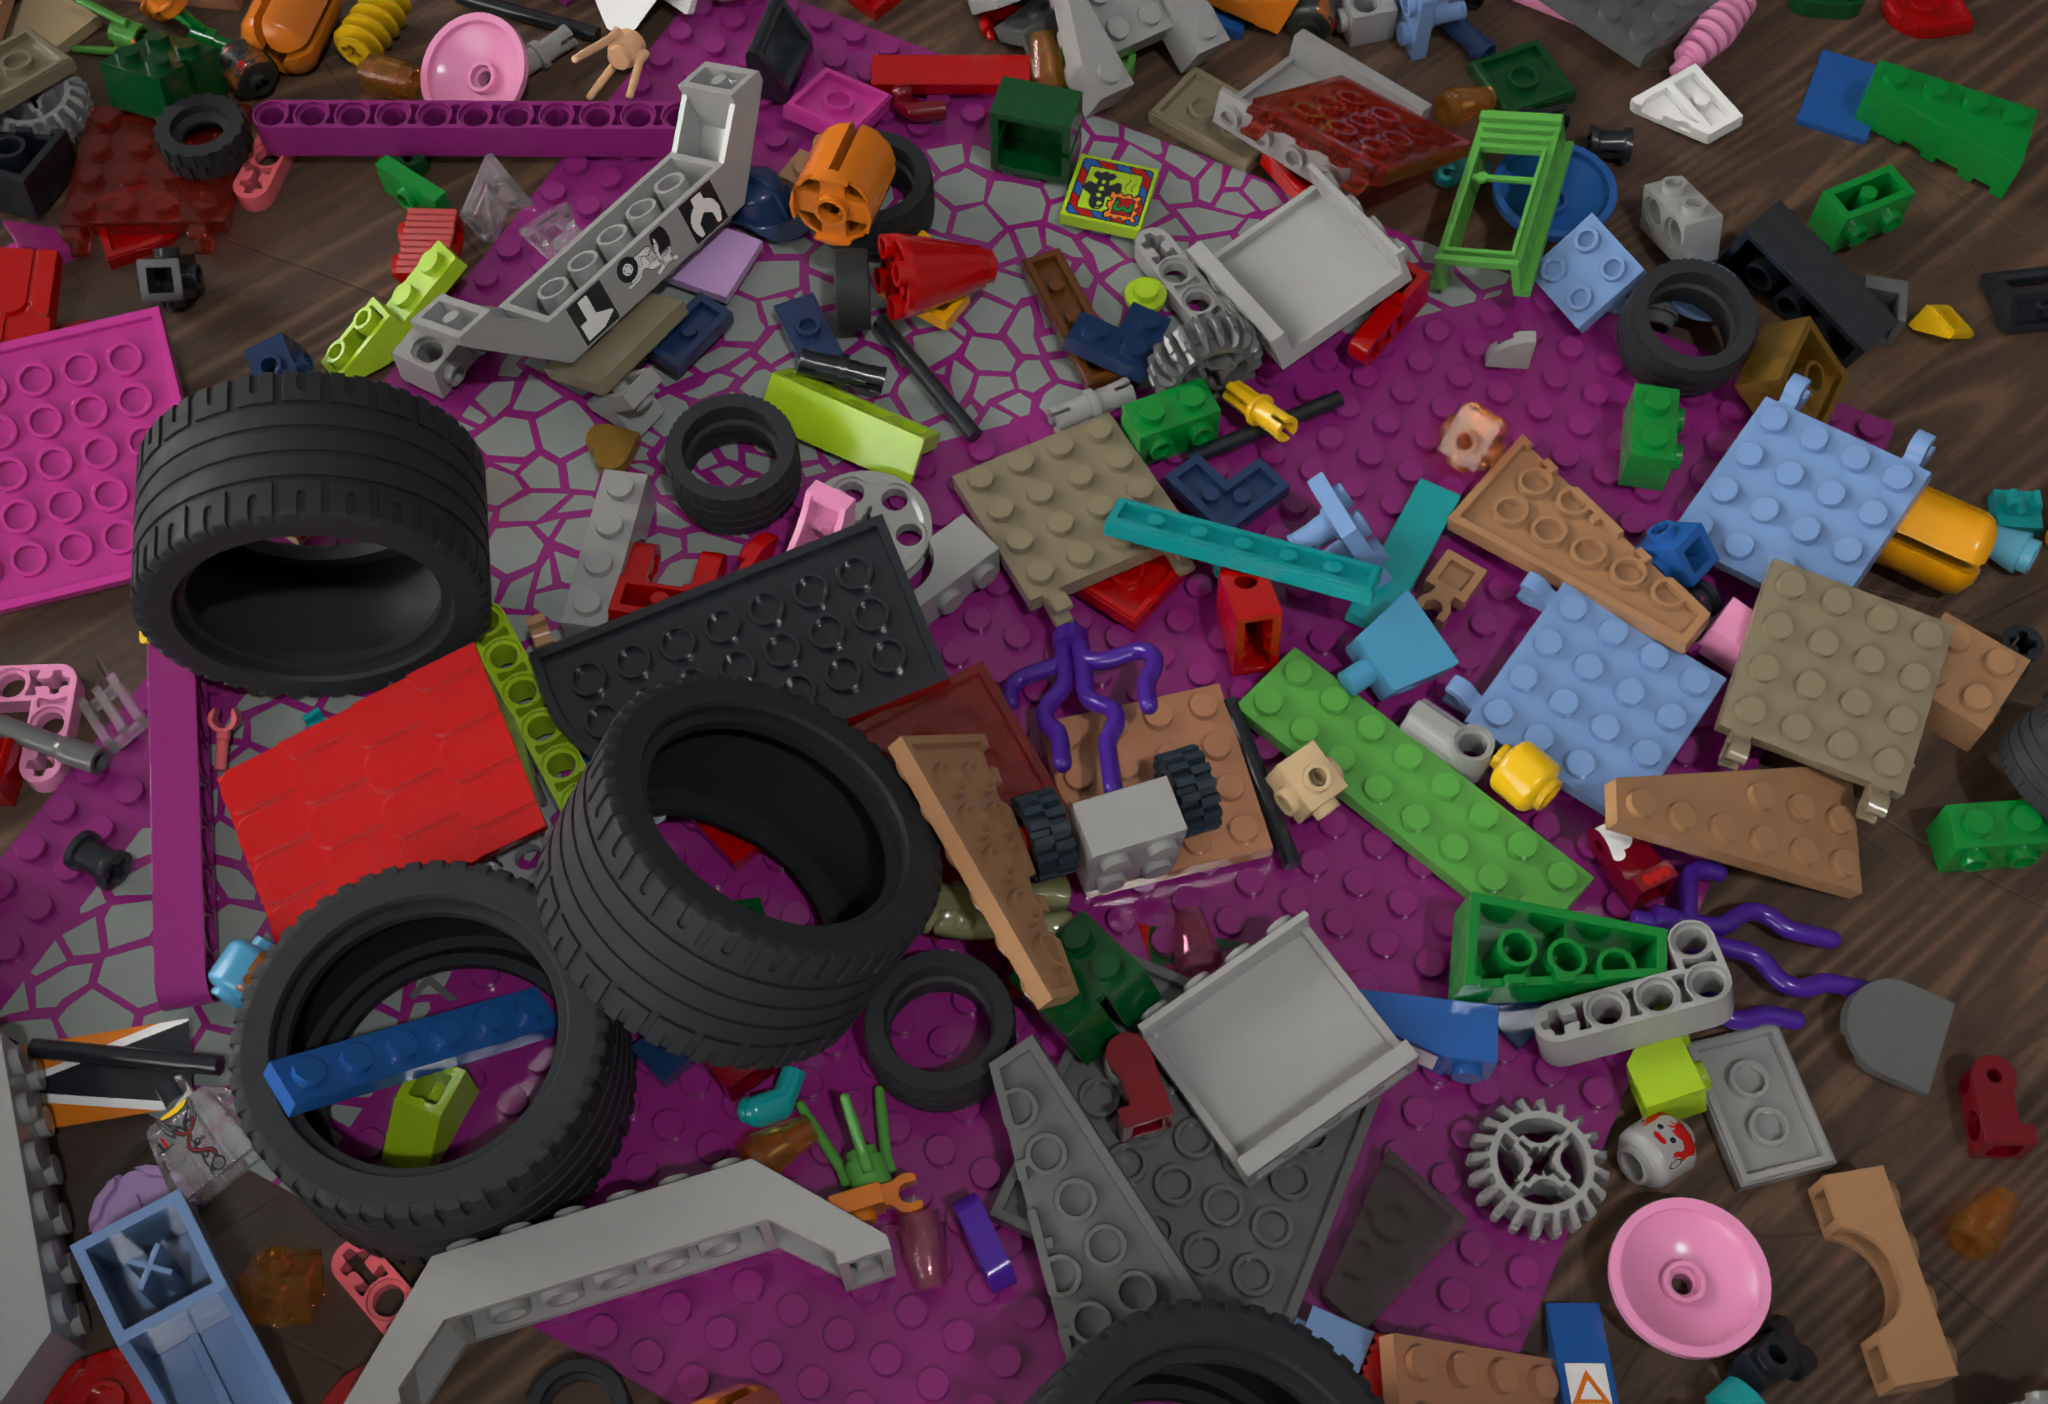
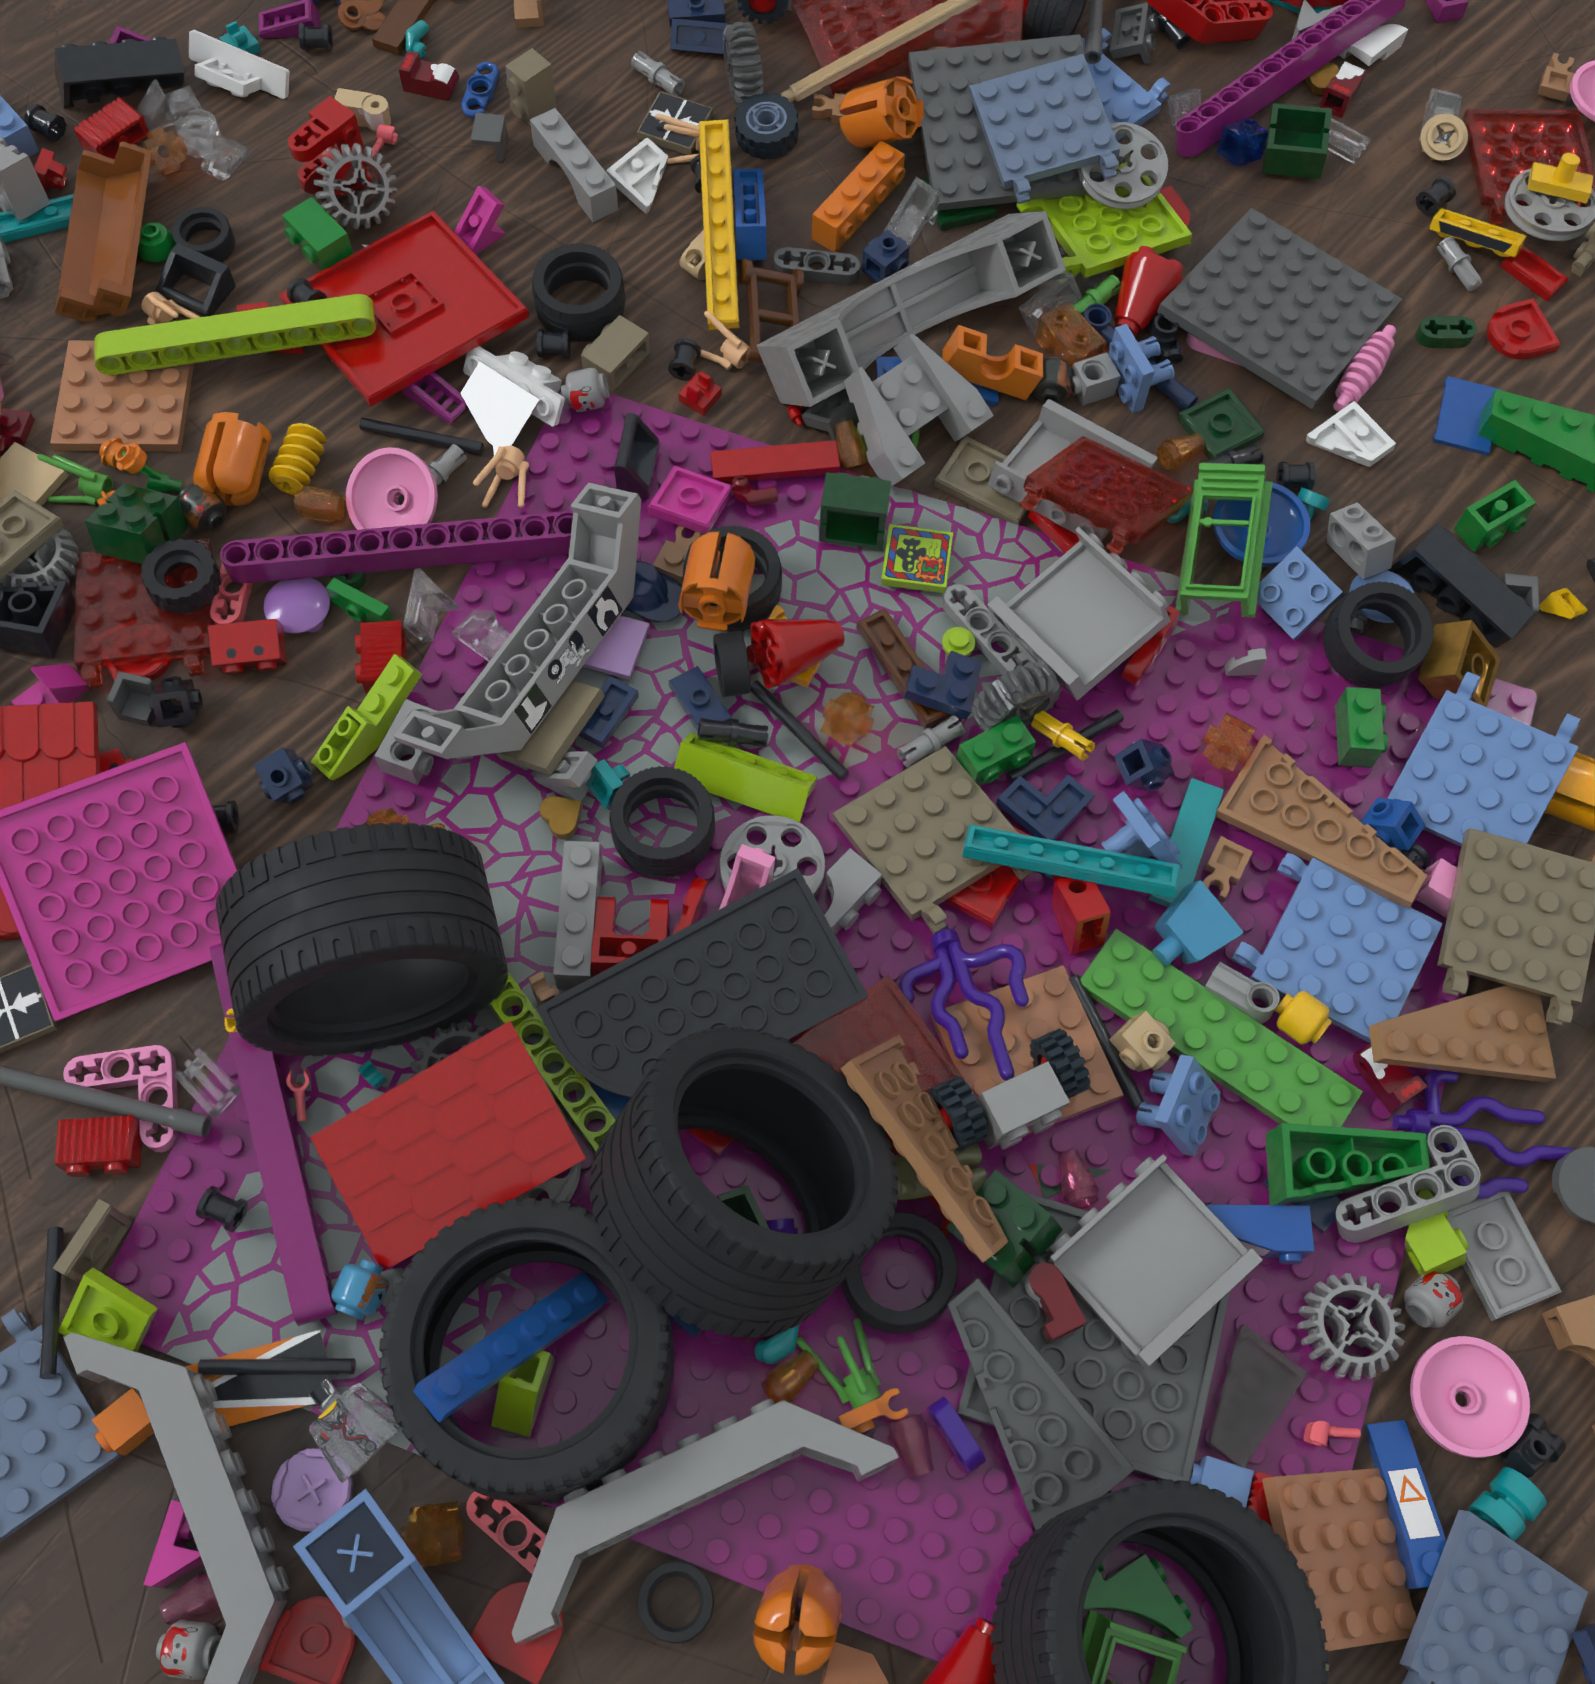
camera: 10 degrees left, 5 degrees up
(114, 269) = (131, 698): none -> dark grey panel
(268, 223) = (247, 646): none -> red brick
(340, 187) = (298, 605): none -> medium lavender dish
(669, 406) = (606, 781): none -> teal tile
(988, 365) = (847, 718): none -> clear orange brick
(1348, 865) = (1185, 1107): none -> medium blue plate
(1360, 453) = (1145, 765): none -> dark blue brick
(1477, 1297) = (1317, 1433): none -> coral hand
(1627, 175) = (1312, 501): none -> teal tile

